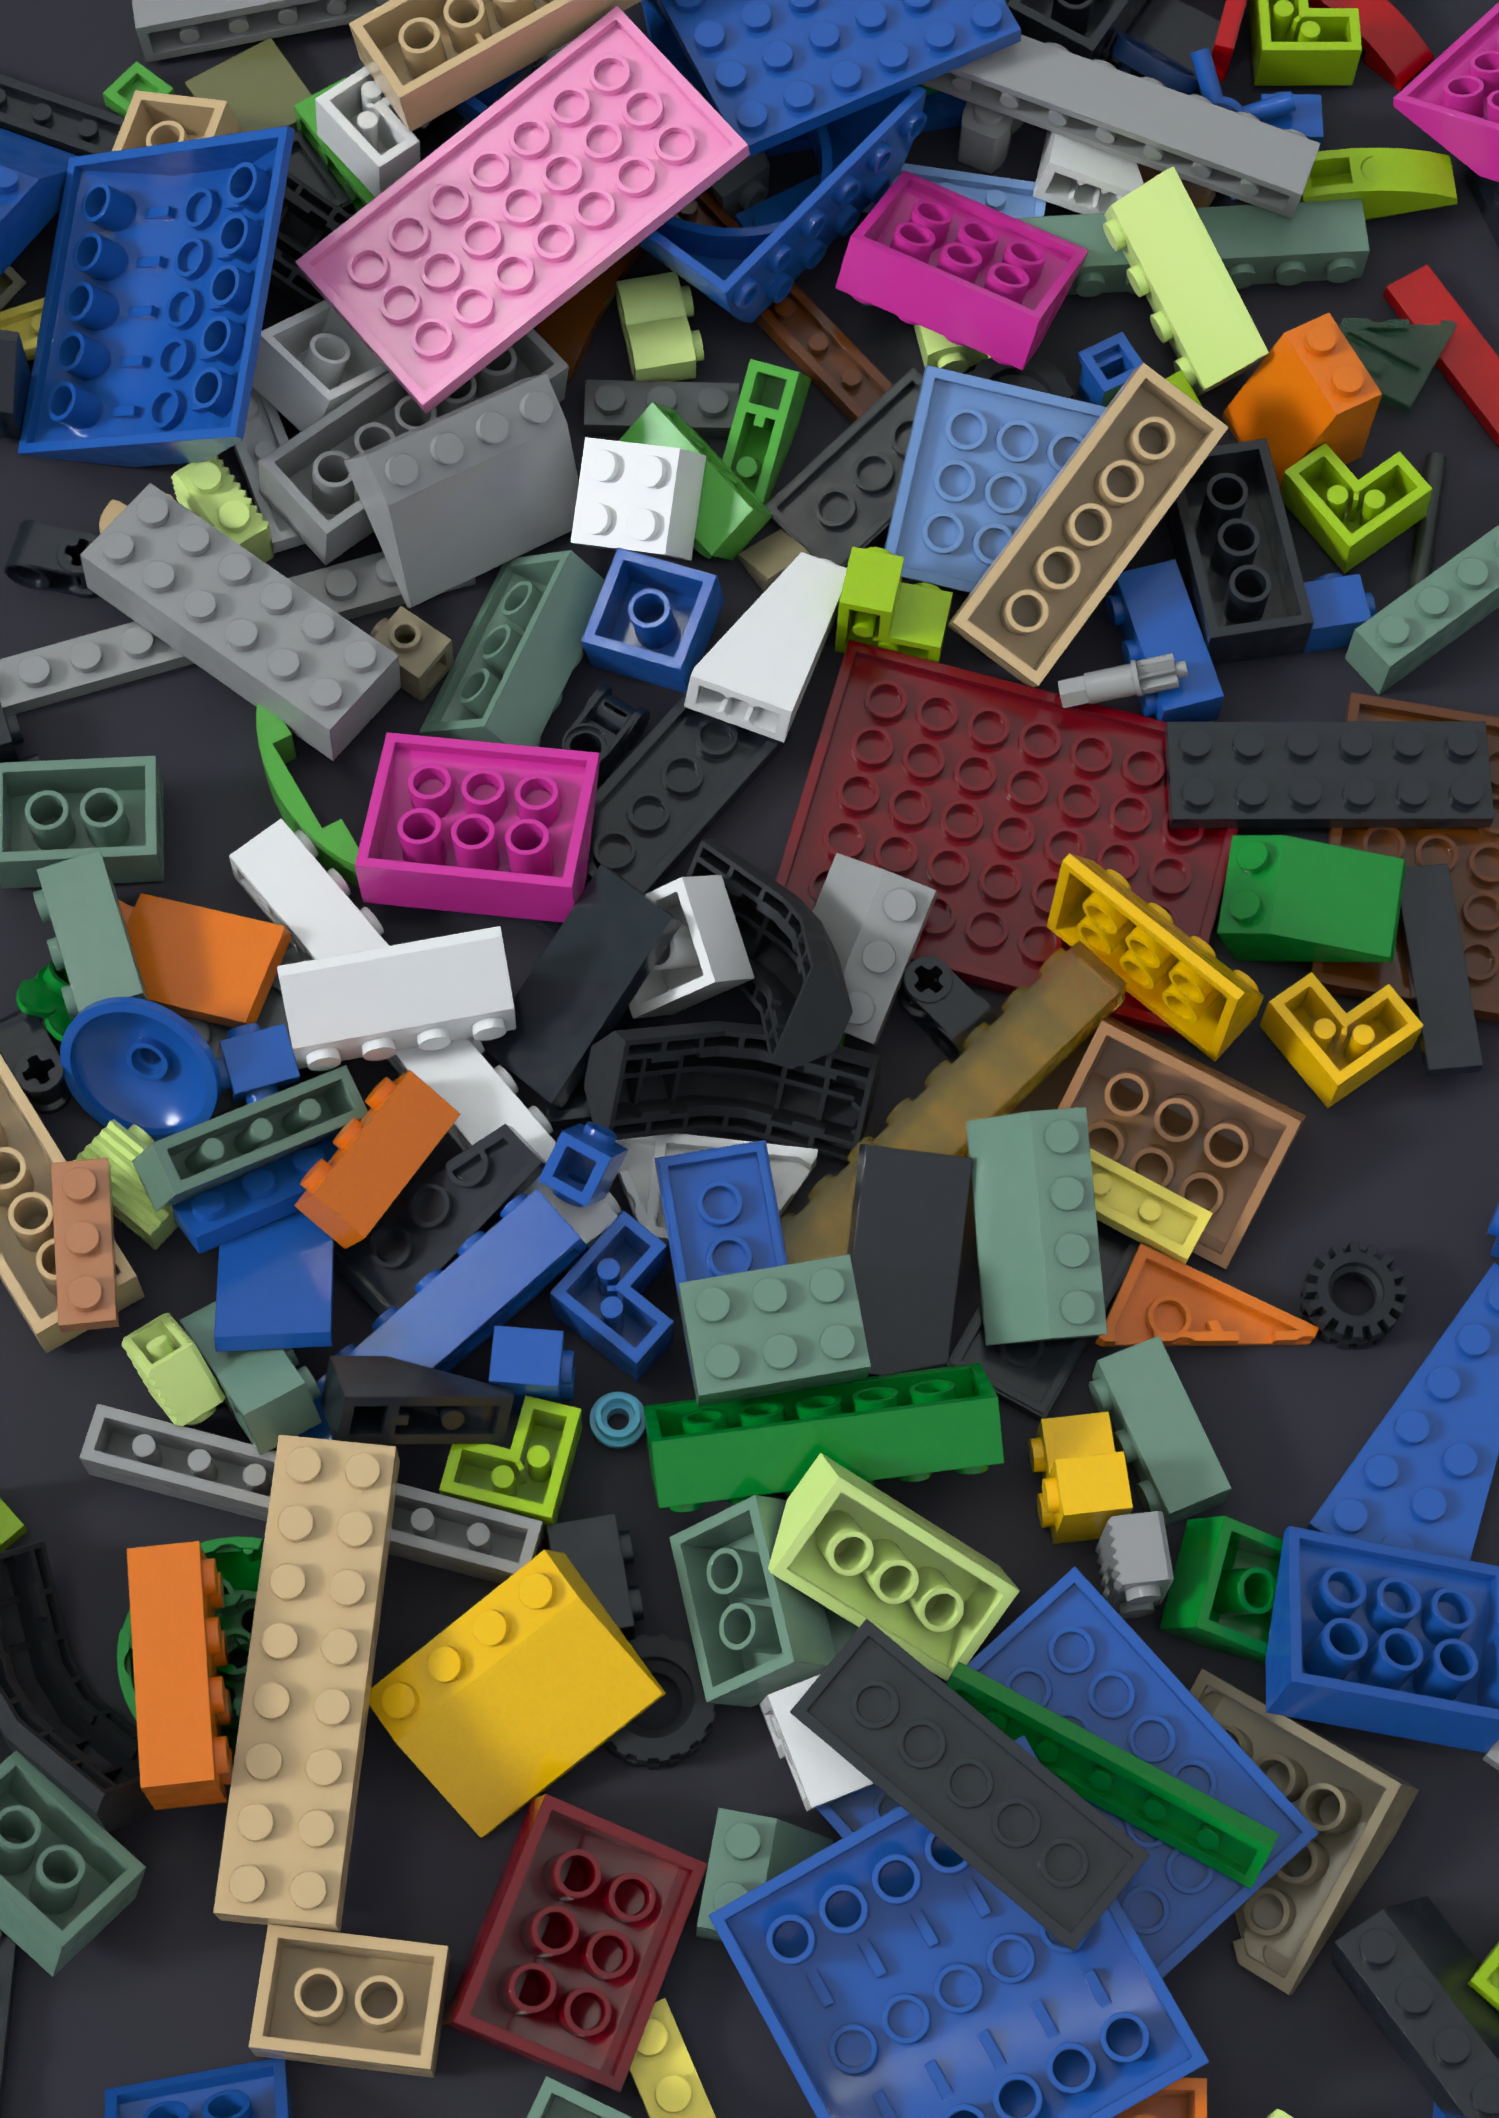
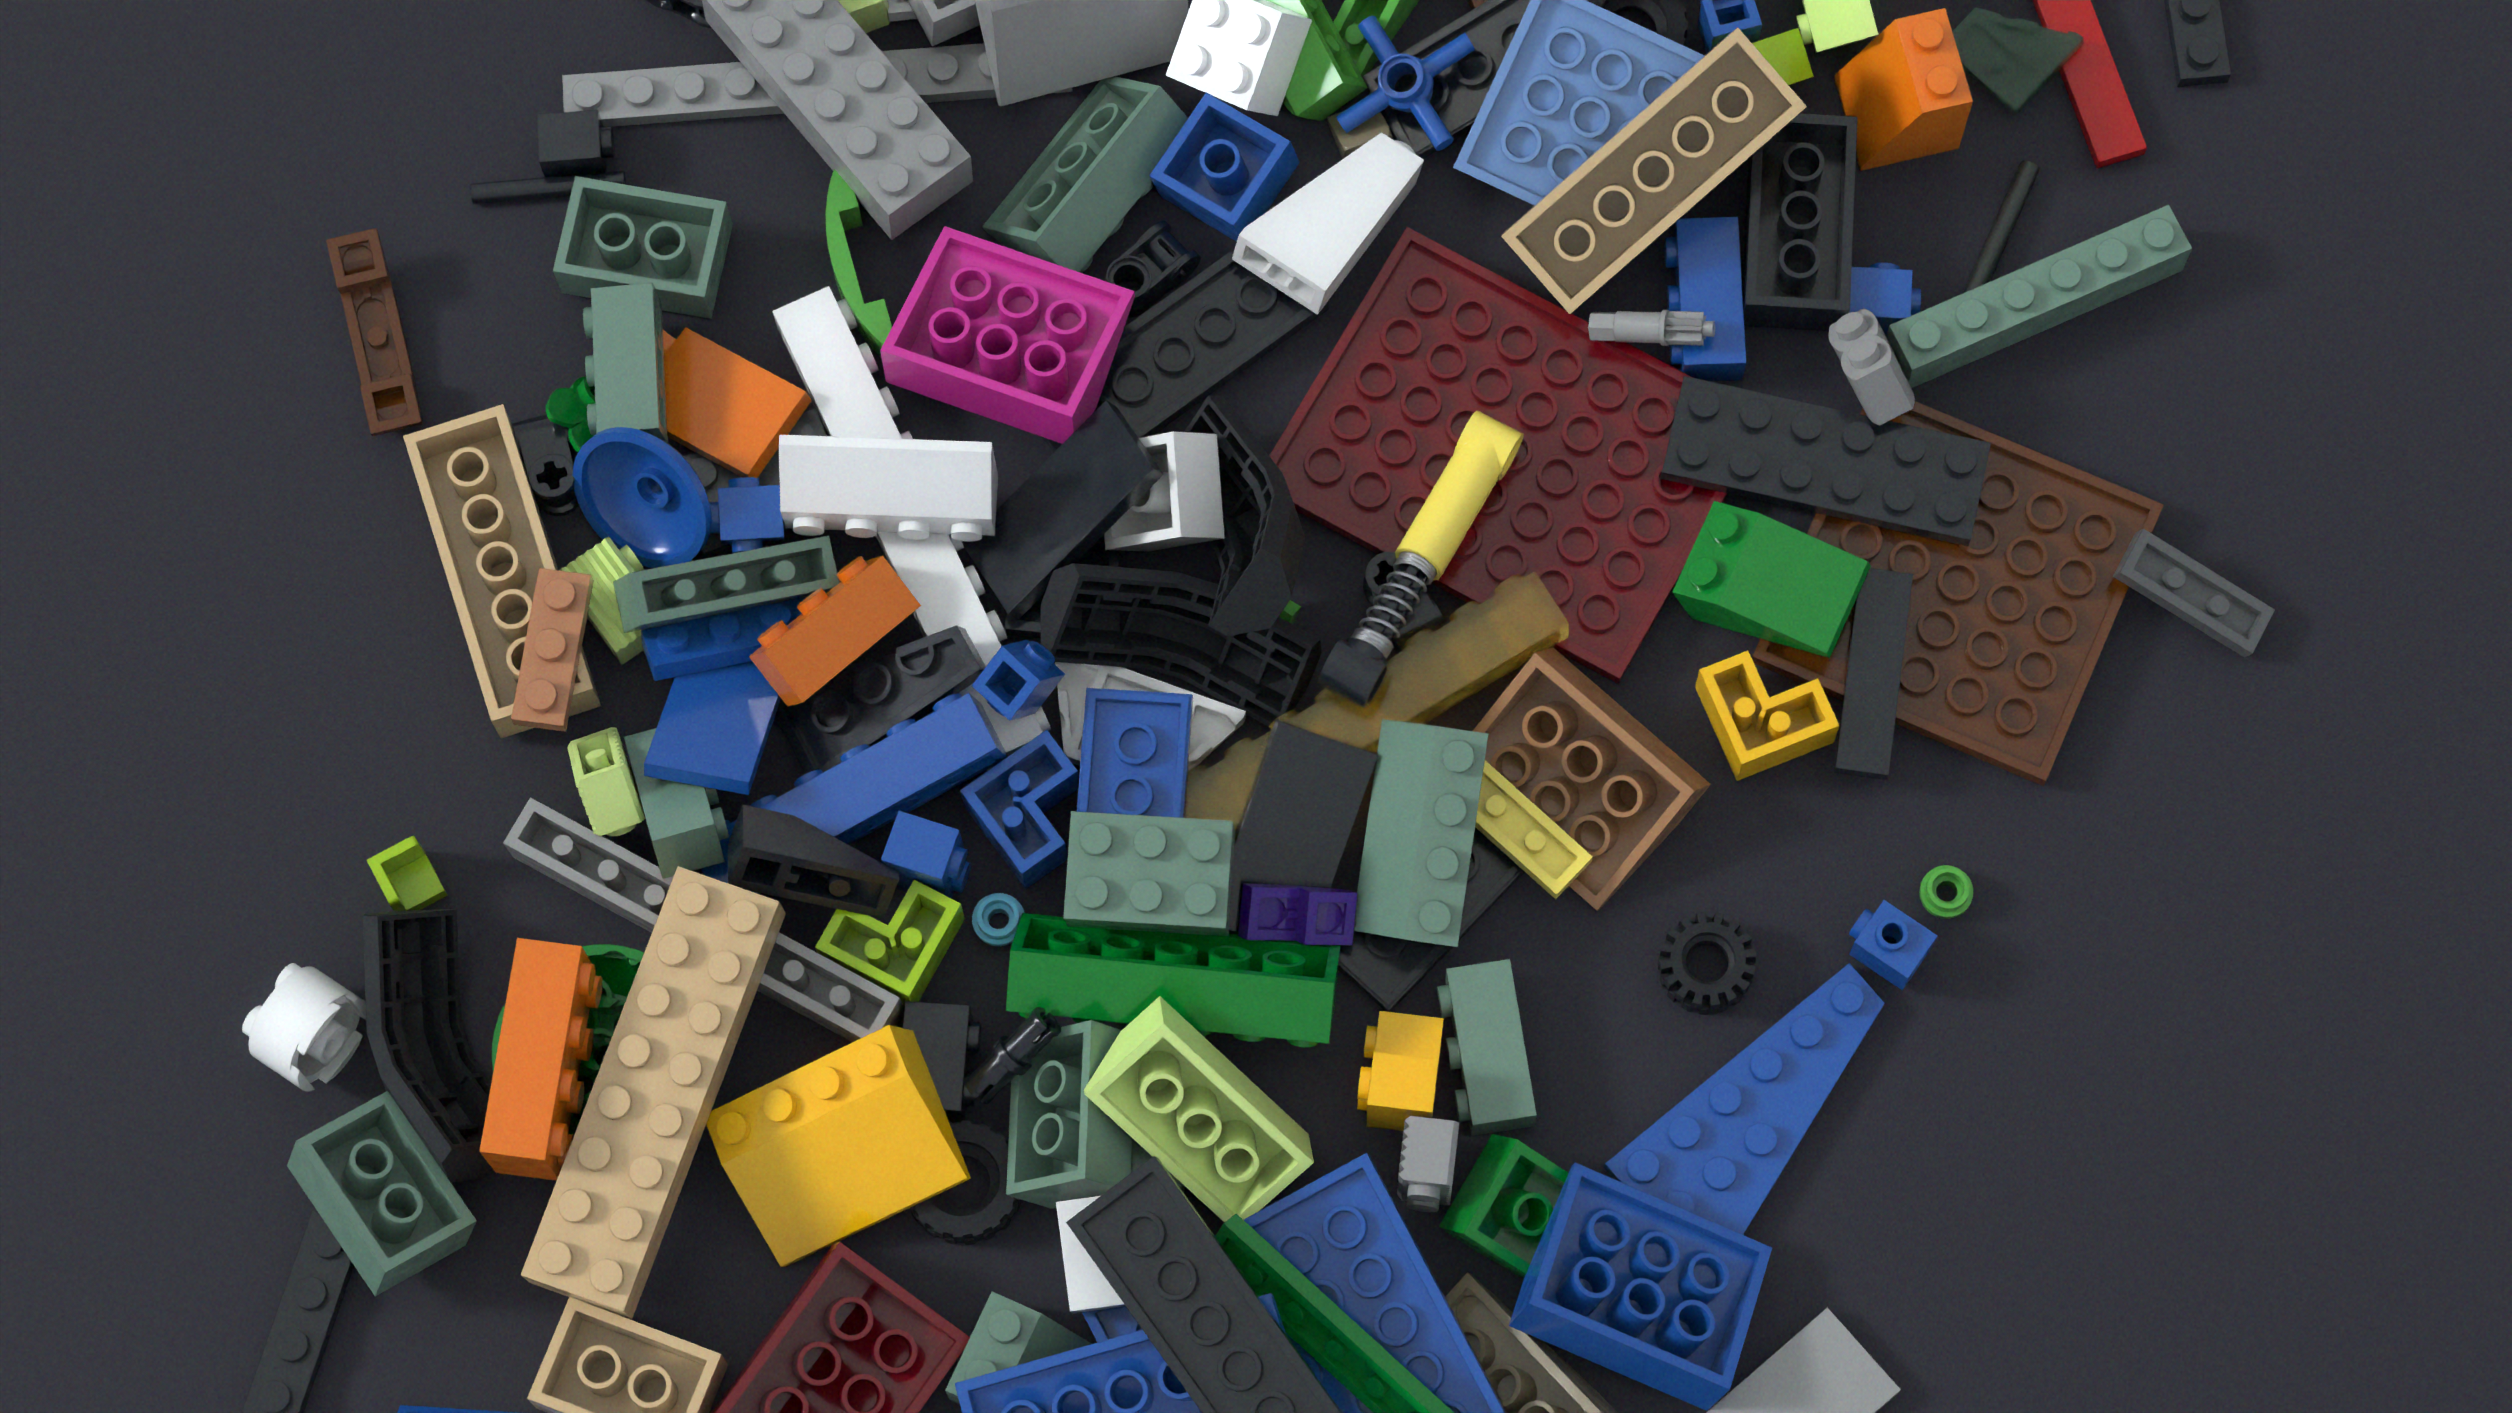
camera: 20 degrees right, 5 degrees up
(422, 651) = (994, 149): dark tan brick -> none
(677, 1553) = (1012, 1055): none -> black pin
(800, 485) = (1418, 97): none -> blue bar
(875, 931) = (1347, 519): light grey slope -> none
(887, 612) = (1449, 209): lime brick -> none
(929, 1340) = (1297, 914): none -> dark purple slope
(960, 953) = (1479, 460): none -> piece
(1156, 959) = (1602, 599): yellow slope -> none
(1193, 1309) = (1552, 940): orange wing -> none
(1350, 514) = (1928, 210): lime brick -> none
(1350, 671) = (1871, 366): none -> light grey brick

